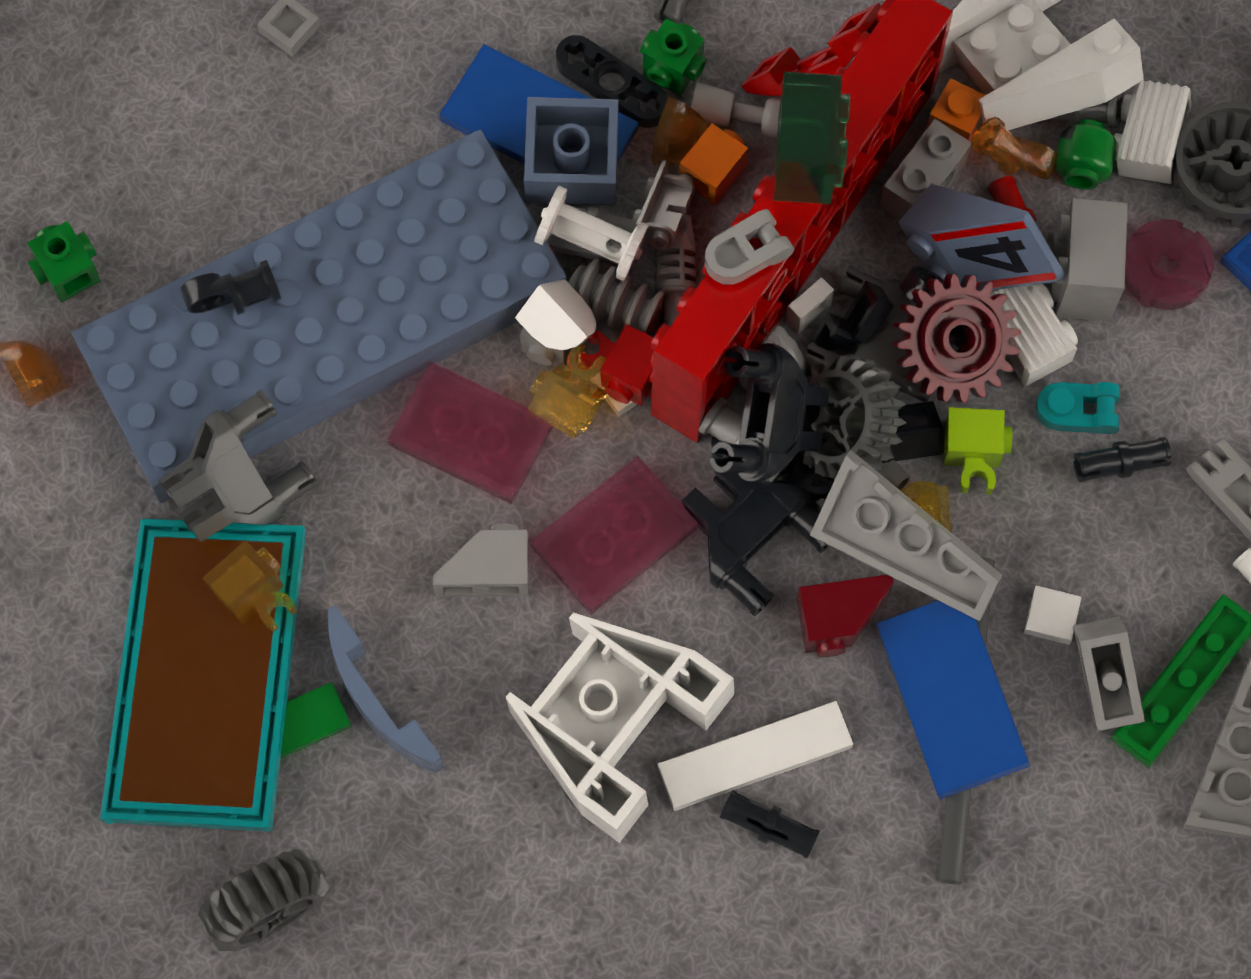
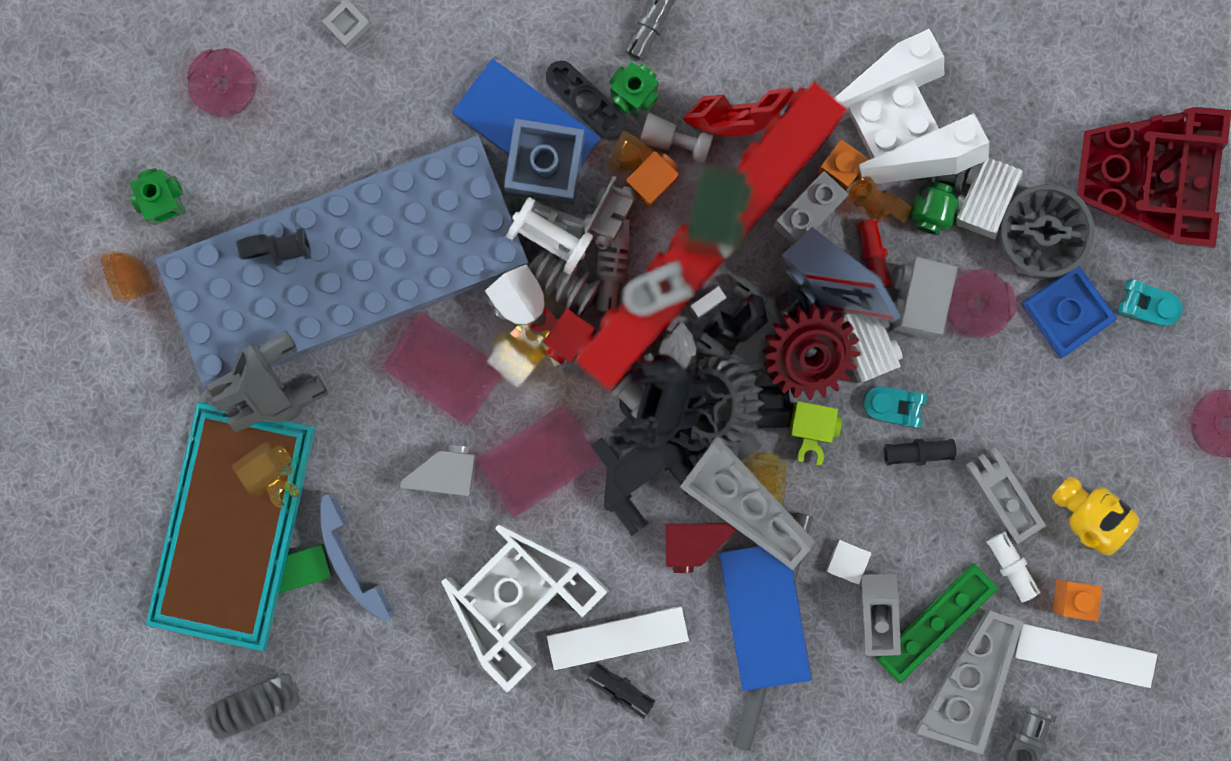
camera: 10 degrees right, 15 degrees up
(135, 139) = (221, 63): none -> clear pink plate

